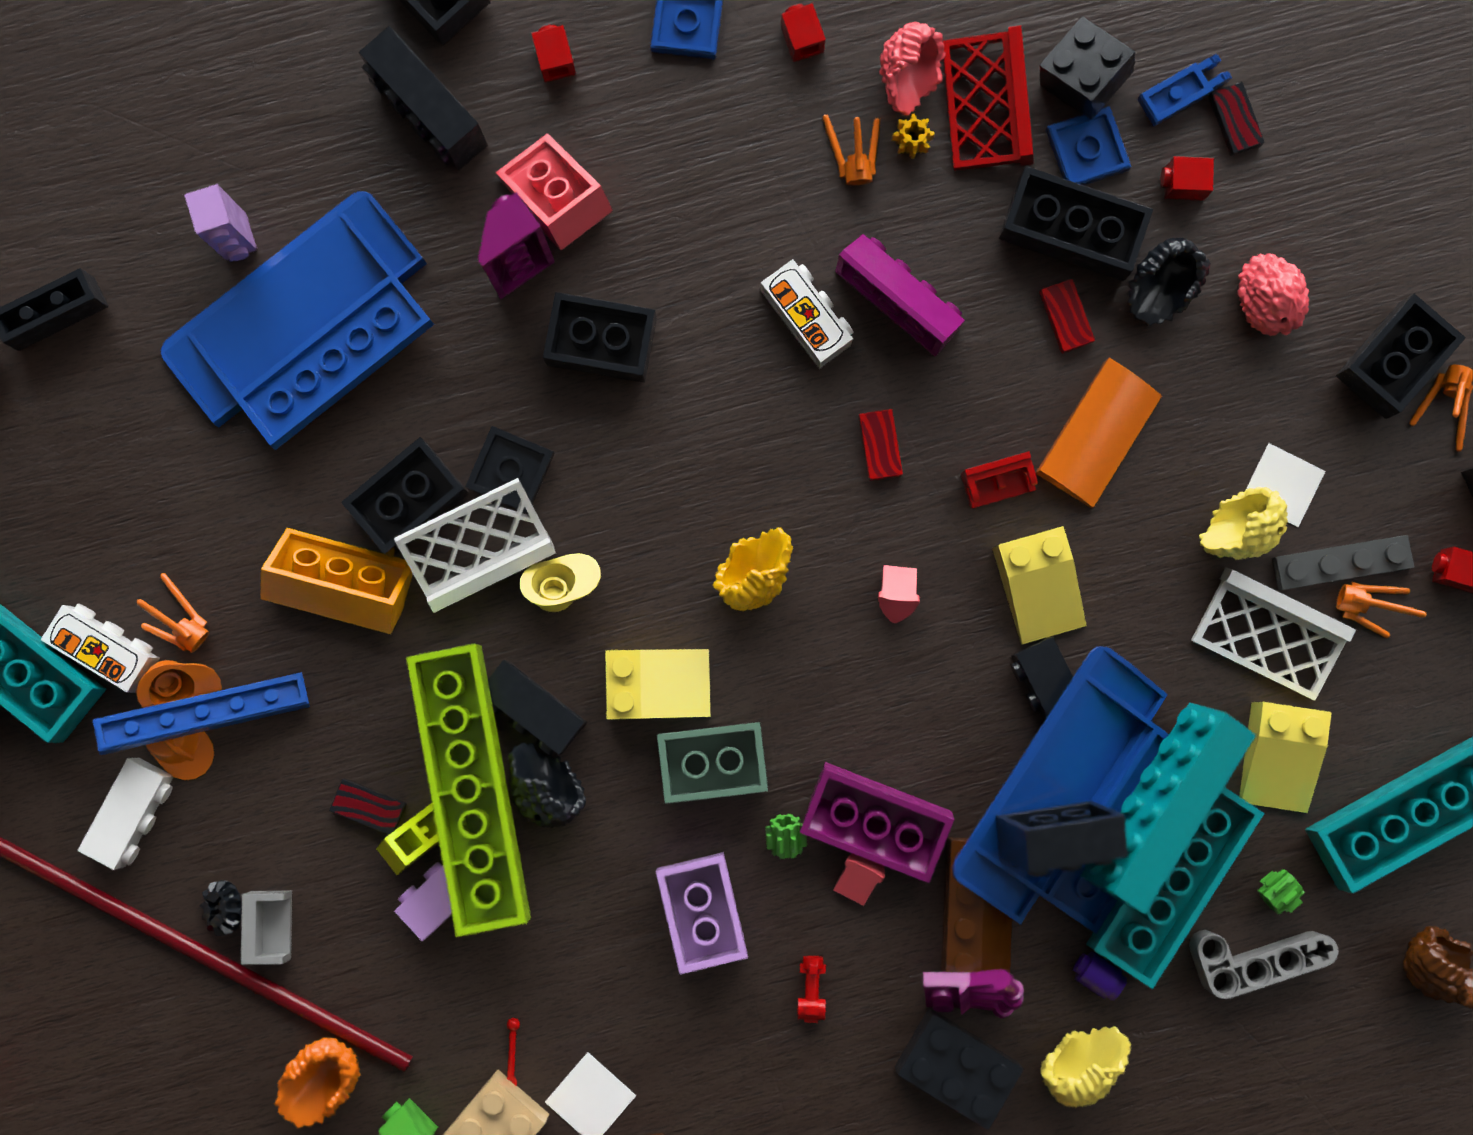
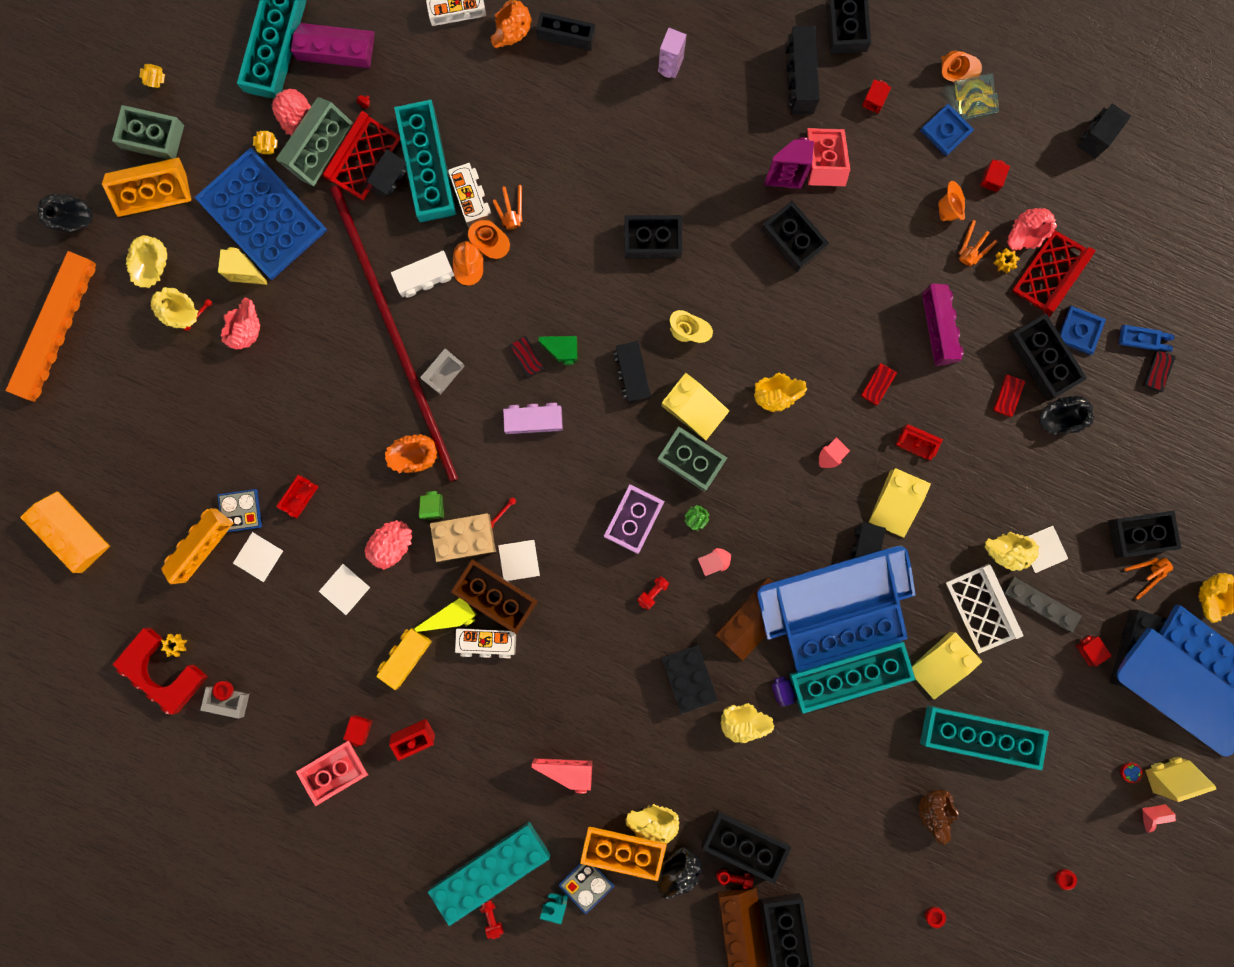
camera: 40 degrees right, 0 degrees up
(200, 713) = (490, 257): blue tile -> none
(230, 908) = (435, 350): black gear -> none
(304, 323) = (670, 126): blue slope -> none
(336, 580) = (593, 248): light orange slope -> none
(401, 757) = (562, 348): none -> green slope
(410, 840) = (546, 386): neon yellow slope -> none
(468, 789) = (579, 381): lime brick -> none
(484, 571) = (660, 296): white fence -> none
(506, 459) = (707, 262): black plate -> none
(544, 787) = (610, 410): black piece -> none
(777, 116) = (952, 204): none -> orange piece
(807, 313) = (894, 300): brick -> none
(877, 822) = (741, 544): magenta slope -> none
(980, 990) = (725, 650): magenta plate -> none
(1062, 837) = (818, 613): black brick -> none
(1087, 68) = (1109, 293): black brick -> none
(1099, 433) = (980, 458): orange slope -> none
(1172, 803) = (876, 639): teal brick -> none
(1188, 178) = (1114, 379): red brick -> none
(1266, 958) = (862, 745): light grey beam -> none
(1273, 291) = (1109, 458): coral piece -> none
(1281, 891) = (894, 722): bright green gear -> none
(1354, 599) = (1035, 624): orange plant -> none

